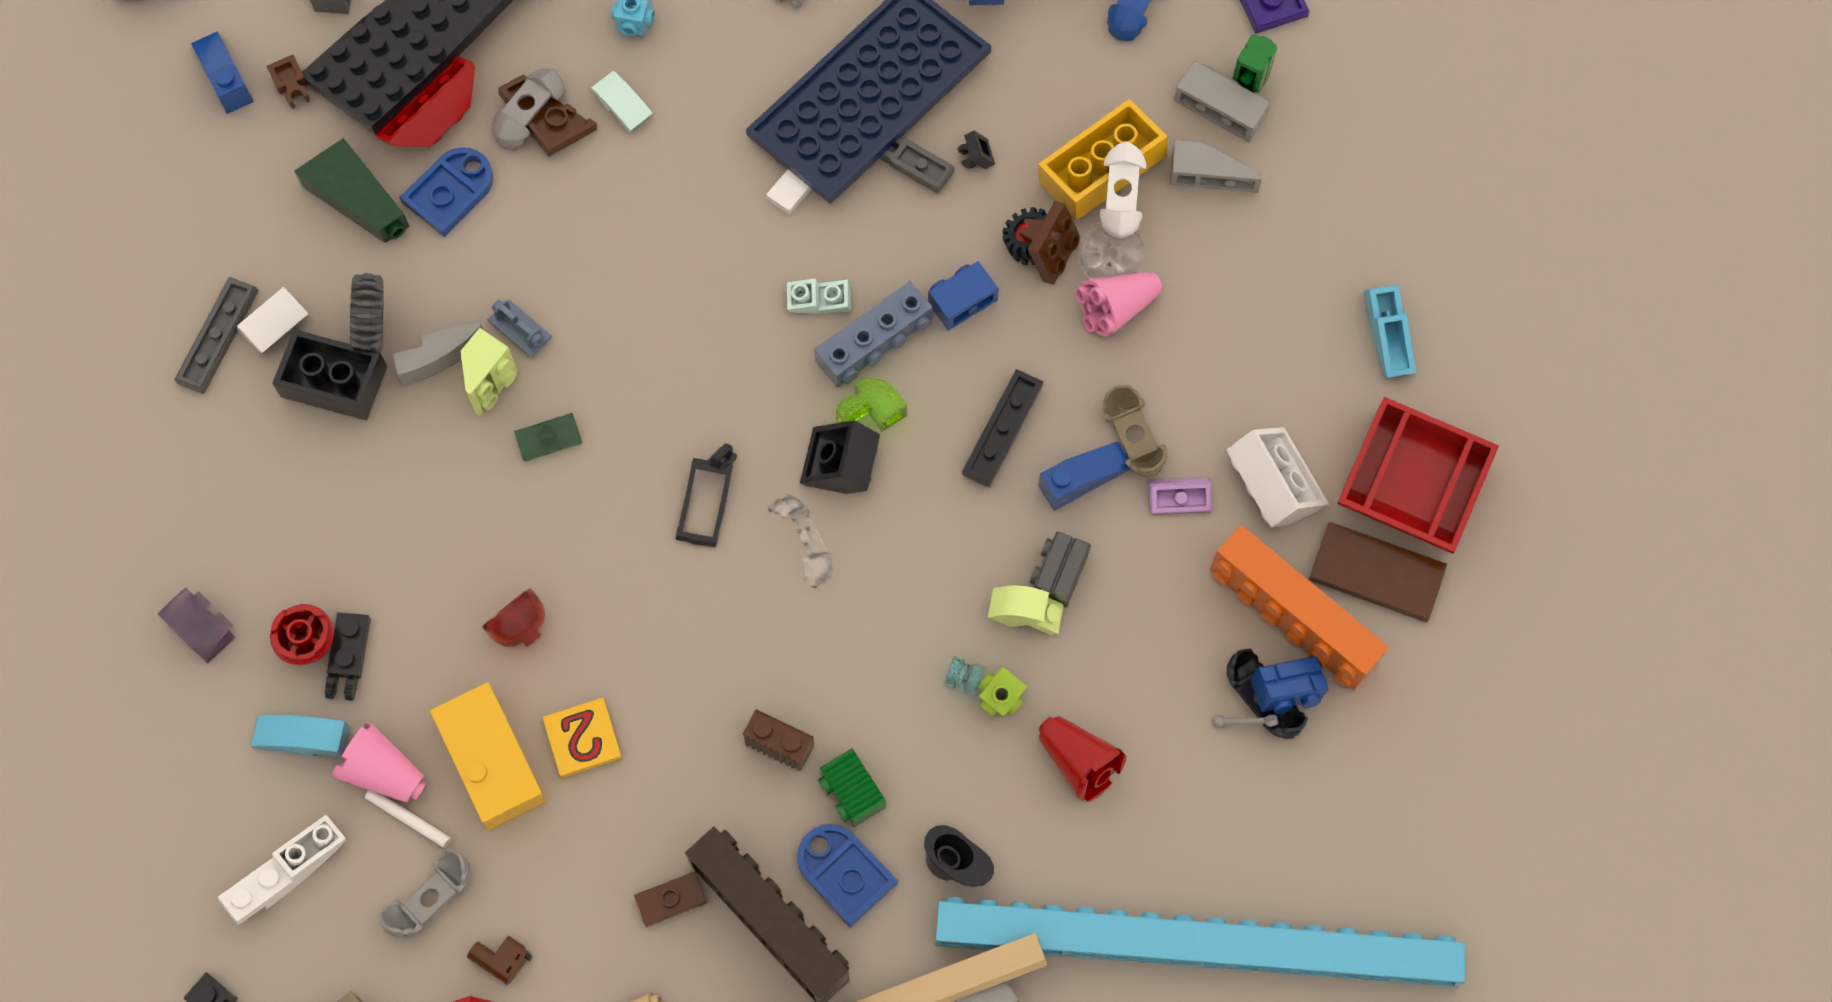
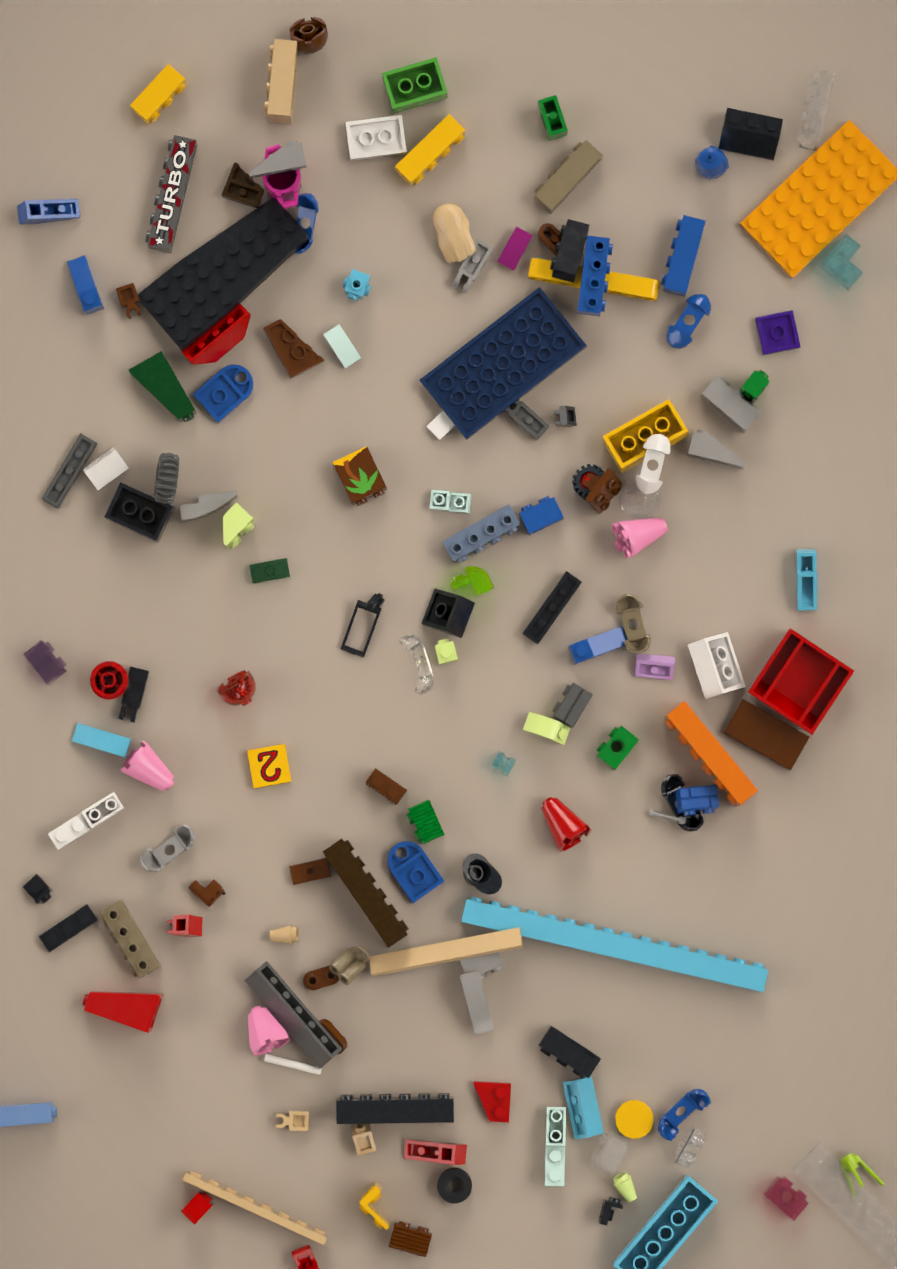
camera: 10 degrees right, 15 degrees up
(408, 818) = (162, 800): white bar -> none
(488, 756) = (212, 770): yellow brick -> none
(511, 122) = (269, 354): light grey piece -> none
(518, 327) = (259, 494): sand blue hinge -> none
(673, 276) = (360, 476): none -> reddish brown panel
(845, 516) = (446, 651): none -> yellowish green brick
(1013, 690) = (524, 771): lime brick -> none
(1141, 642) = (627, 741): none -> green brick

